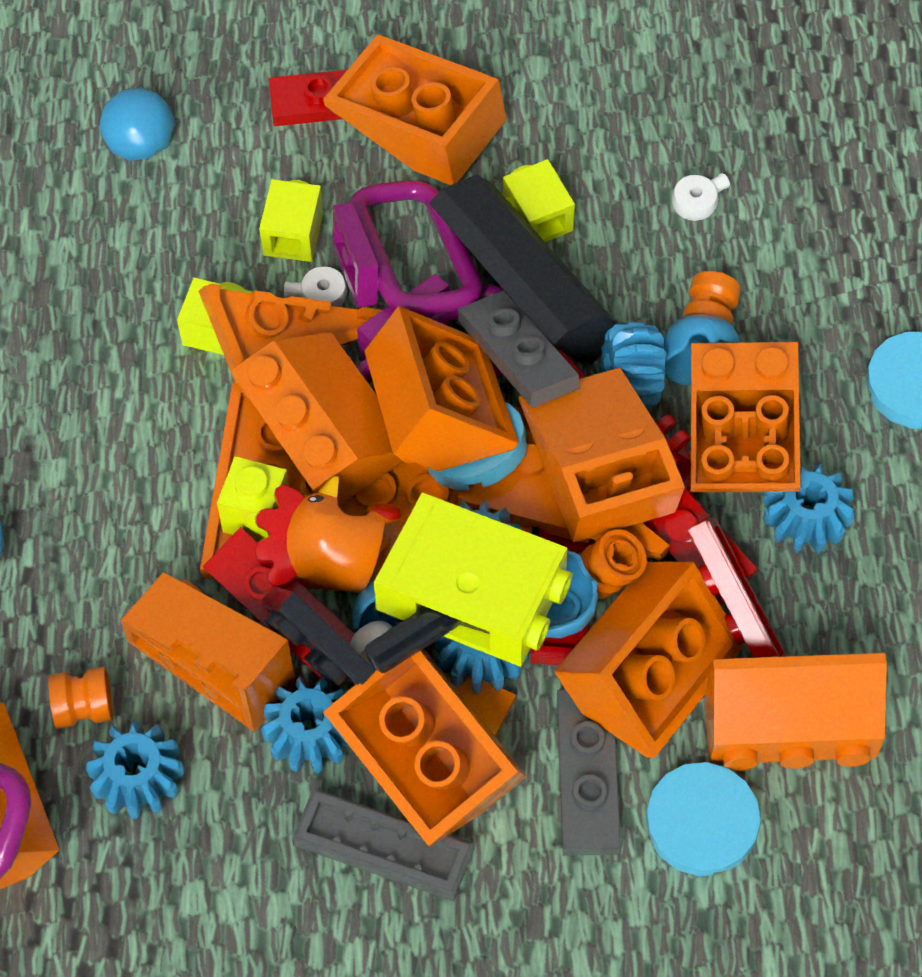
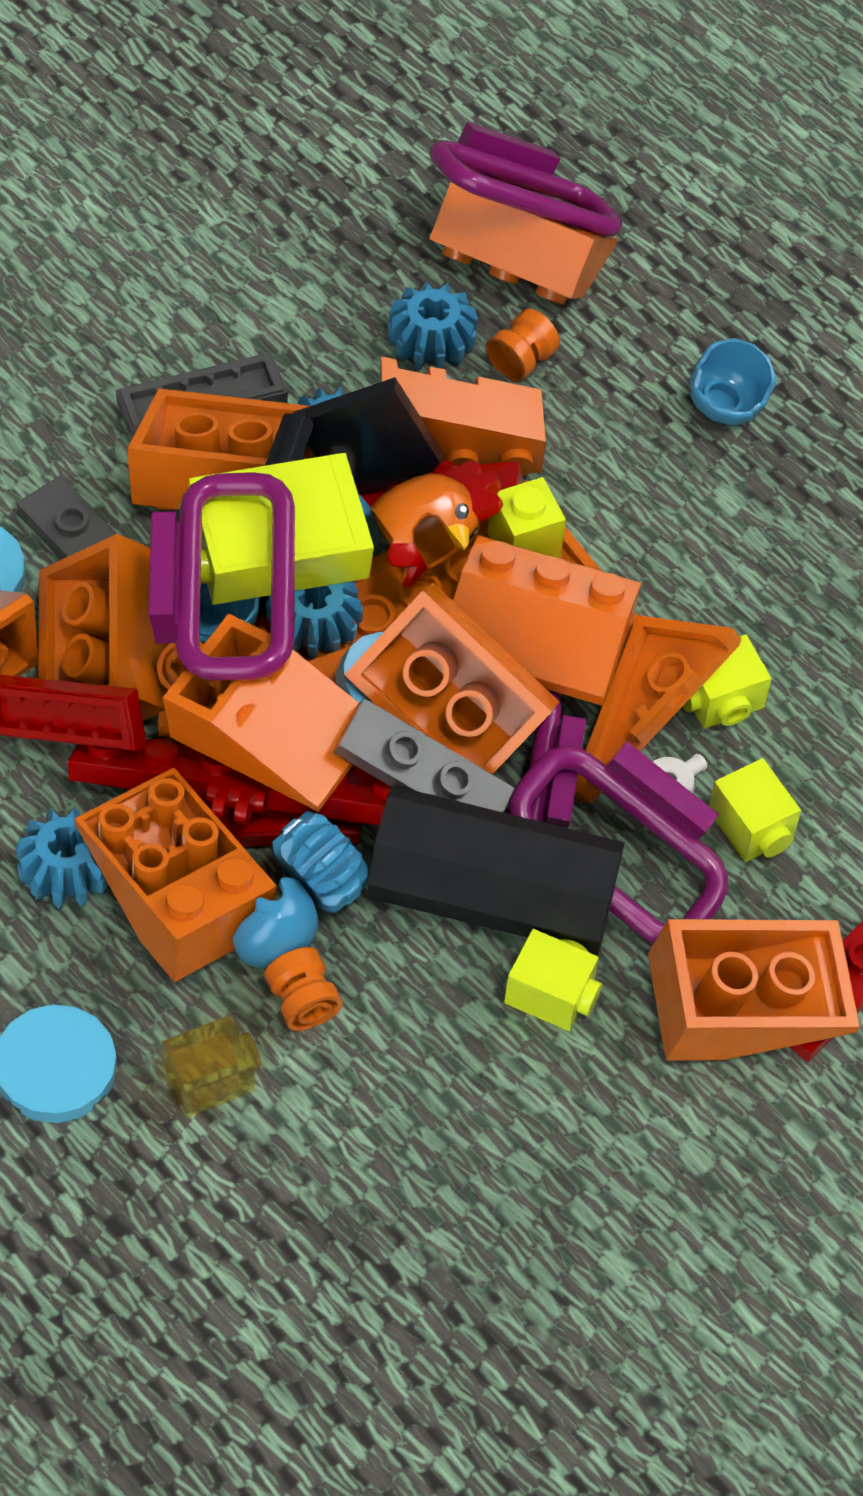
camera: 135 degrees right, 5 degrees down
(597, 564) = (177, 577): none -> magenta bar
(697, 196) = (413, 1124): white piece -> none
(816, 296) = (210, 1065): none -> clear yellow brick

